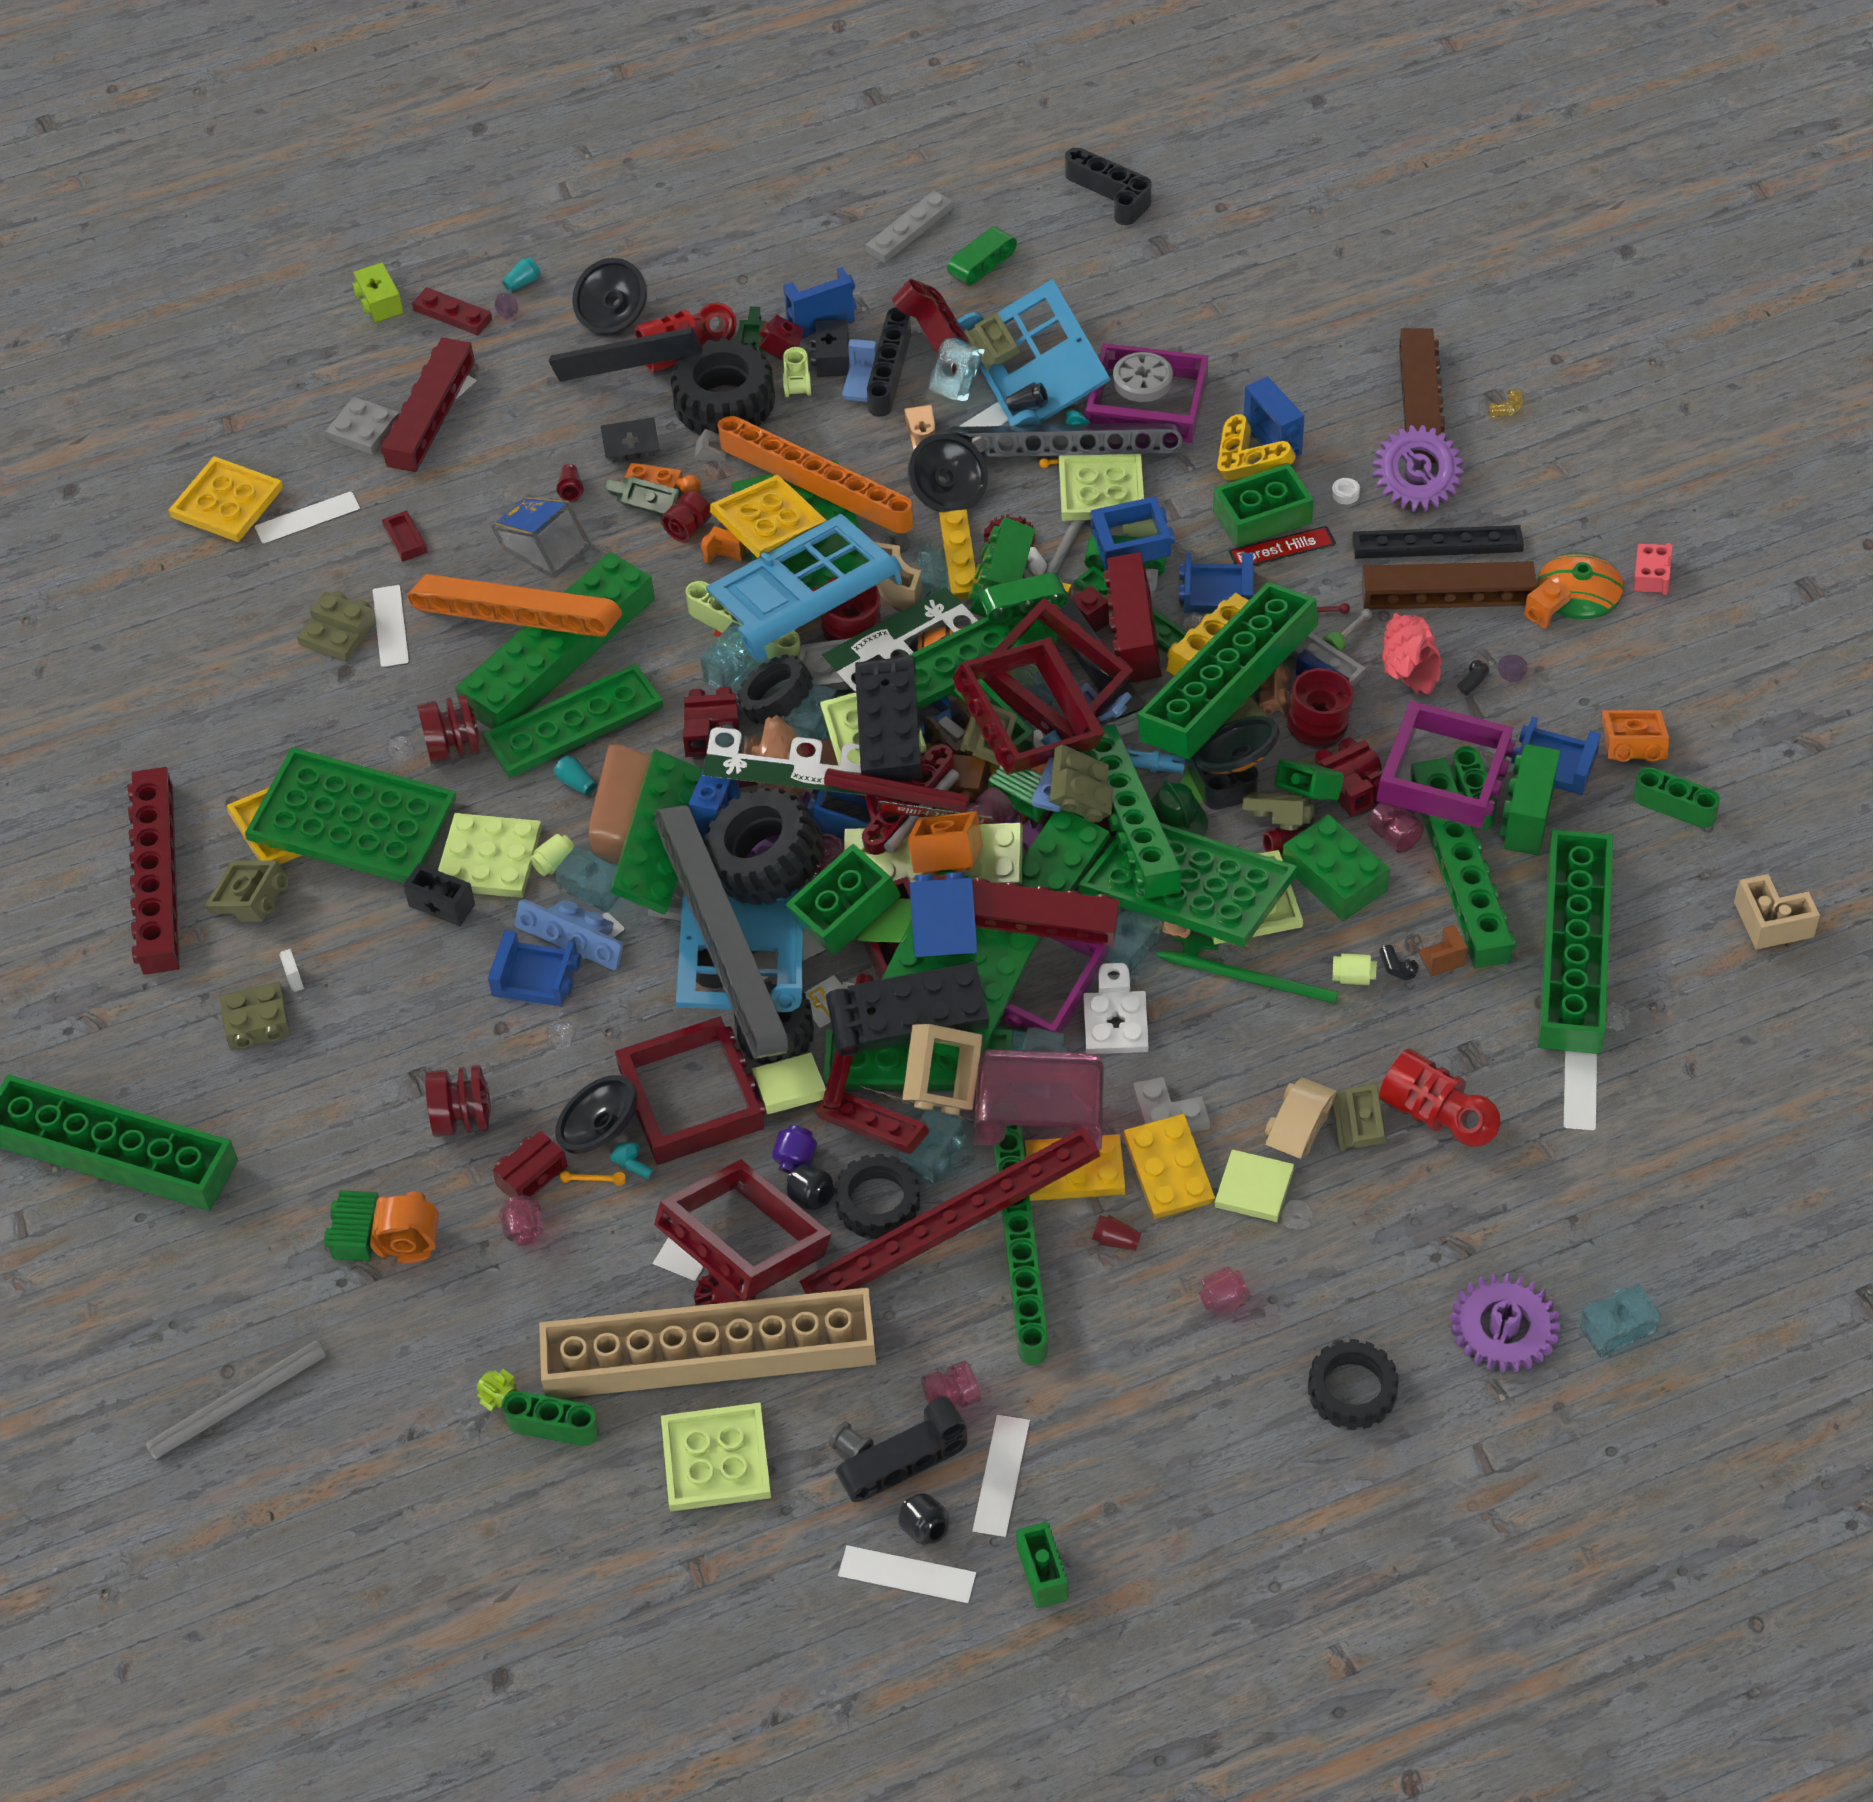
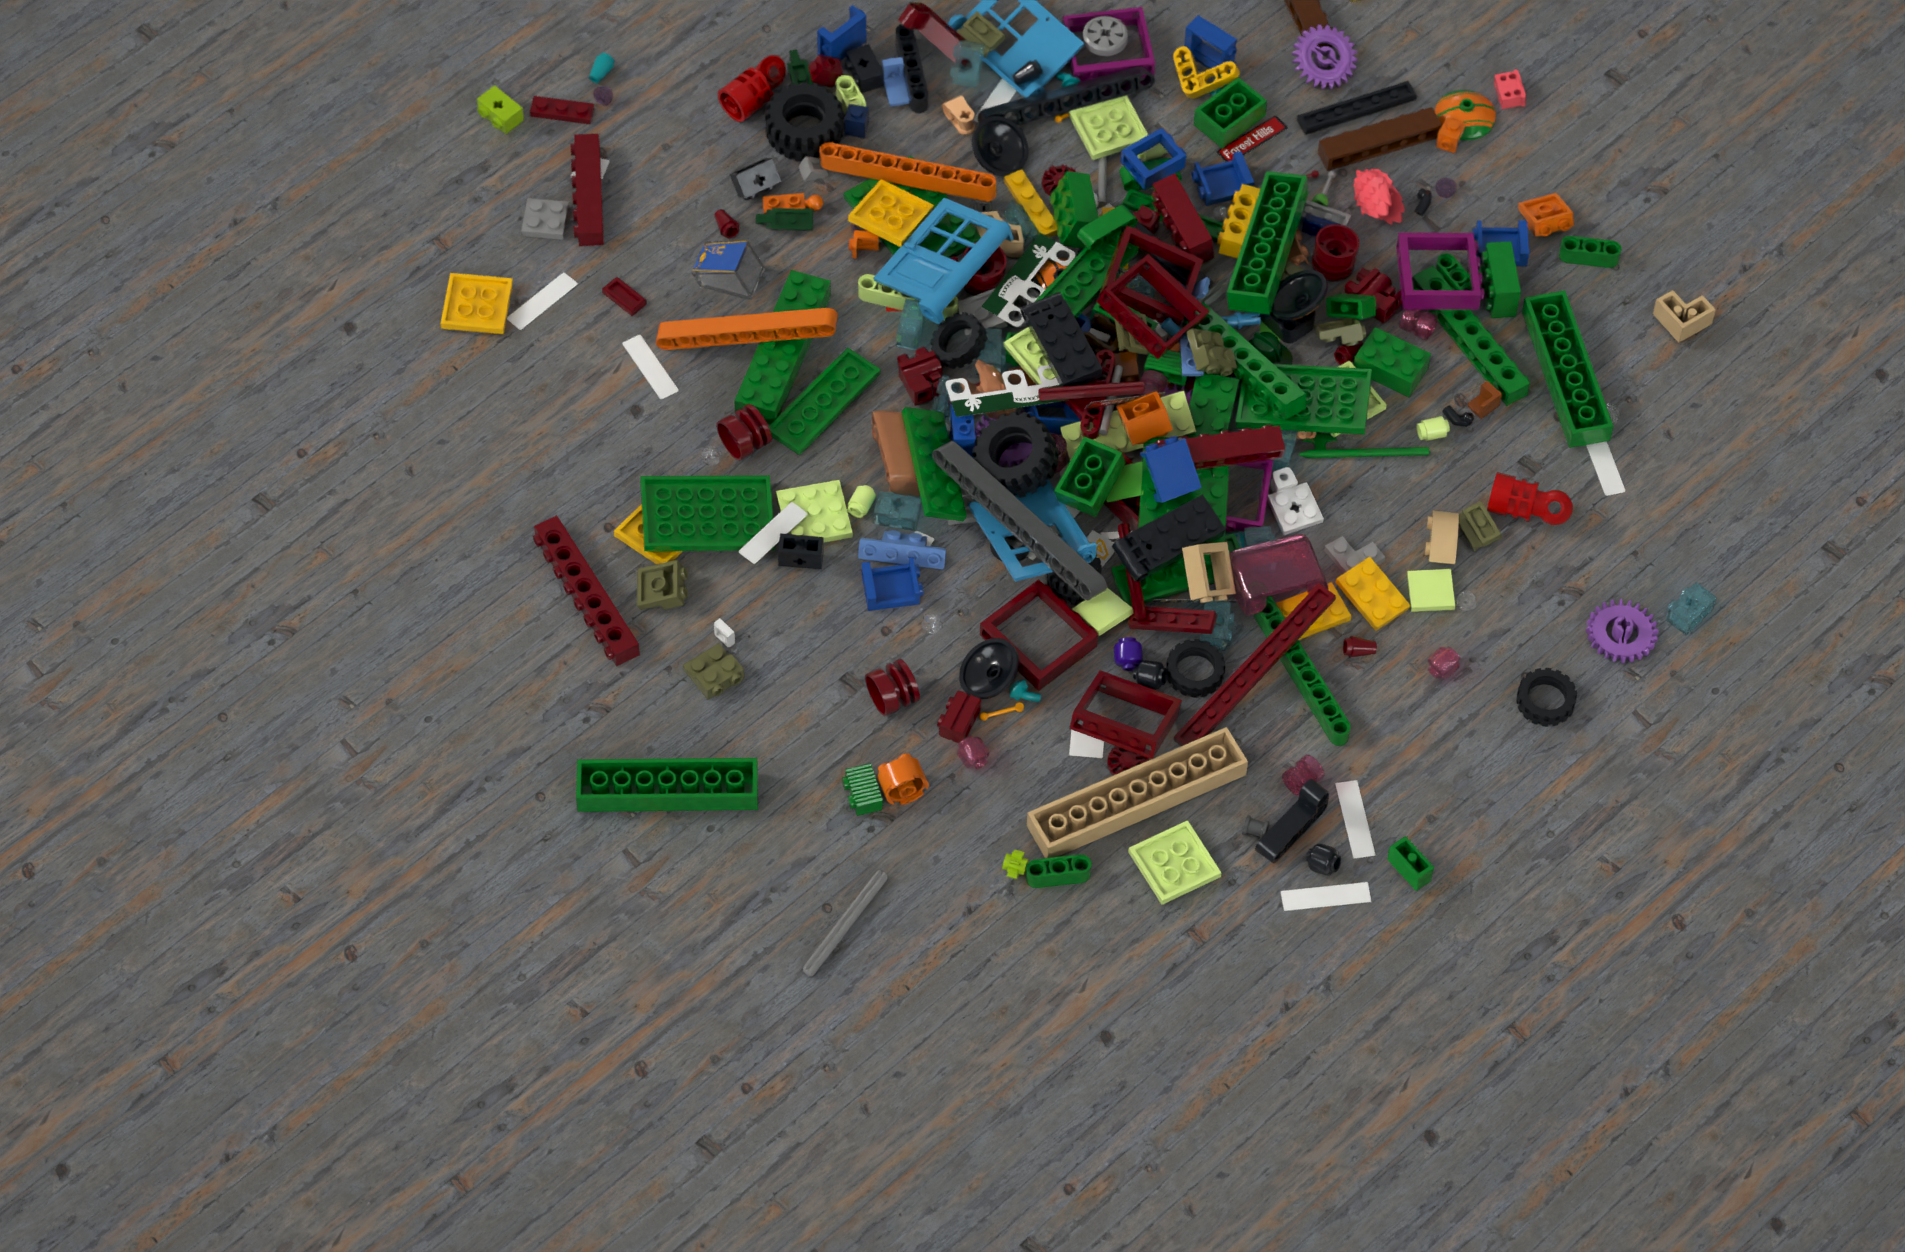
camera: 25 degrees left, 5 degrees up
(337, 625) = (614, 377): olive plate -> none
(430, 855) = (770, 534): none -> white sticker
(574, 775) = (845, 440): teal cone -> none
(599, 289) = (672, 59): black dish -> none
(626, 354) = (724, 114): black tile -> none
(686, 516) = (826, 227): dark red wheel -> none
(789, 404) = (856, 121): none -> dark blue brick
(1345, 491) = (1278, 85): white tile -> none

